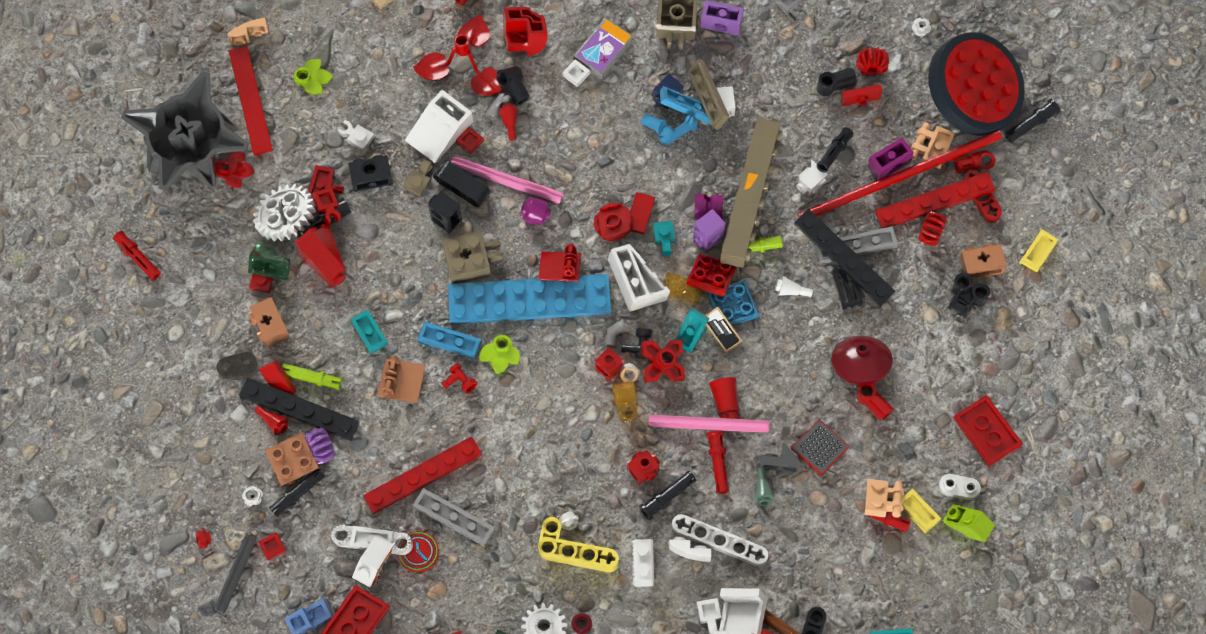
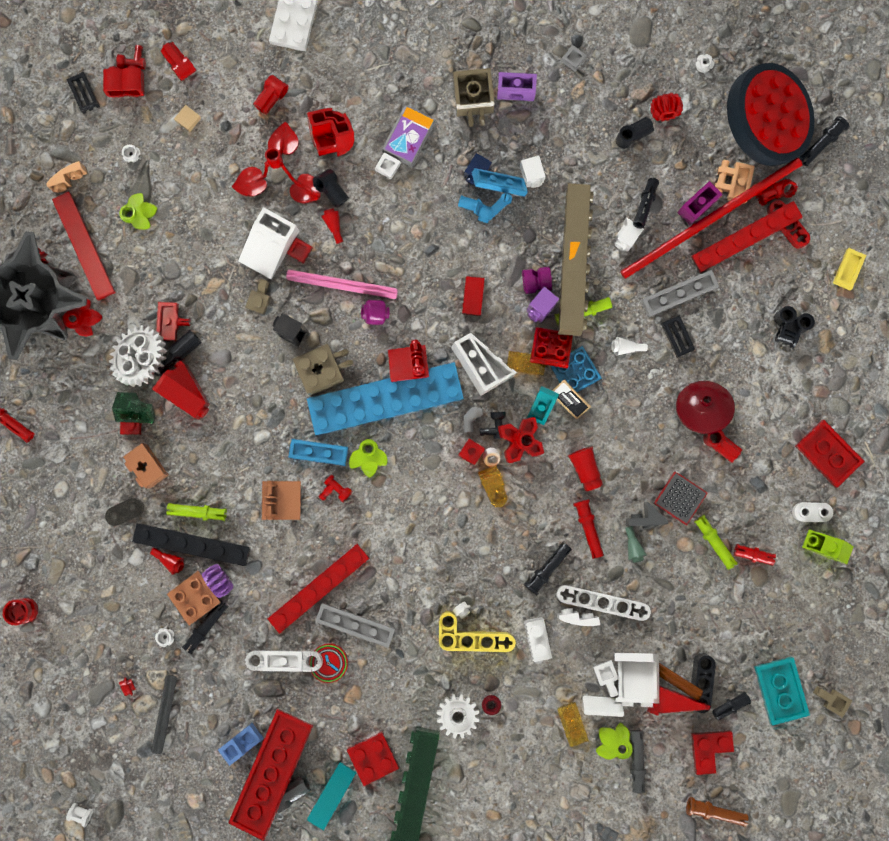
camera: 10 degrees left, 15 degrees up
(110, 442) = (20, 611): none -> red wheel
(272, 546) = (192, 681): red tile -> none
(276, 377) = (164, 519): red tile -> none
(314, 16) = (130, 149): none -> white plate
(327, 203) = (175, 340): red plate -> none
(357, 137) = (193, 265): white plate -> none
(364, 181) = (223, 300): black brick -> none
(369, 331) = (241, 458): teal plate -> none
(373, 561) = (289, 685): white slope -> none
(462, 184) = (300, 296): black beam -> none
(496, 105) = (318, 211): light grey arm -> none
(613, 222) = (450, 310): red tile -> none
(643, 466) = (528, 552): red brick -> none
(664, 235) = (499, 313): teal plate -> none
(708, 94) = (517, 167): dark tan tile -> none
(708, 423) = (576, 495): bright pink axle -> none
(844, 257) = (672, 309): black plate -> none
(850, 498) = (712, 537): none -> lime pin
(861, 95) = (660, 143): red plate -> none
(876, 498) = (741, 539): light nougat plate -> none
(919, 511) = (779, 541): light yellow tile -> none
(932, 228) = (750, 266): red gear -> none
(976, 268) = (811, 287): nougat brick -> none

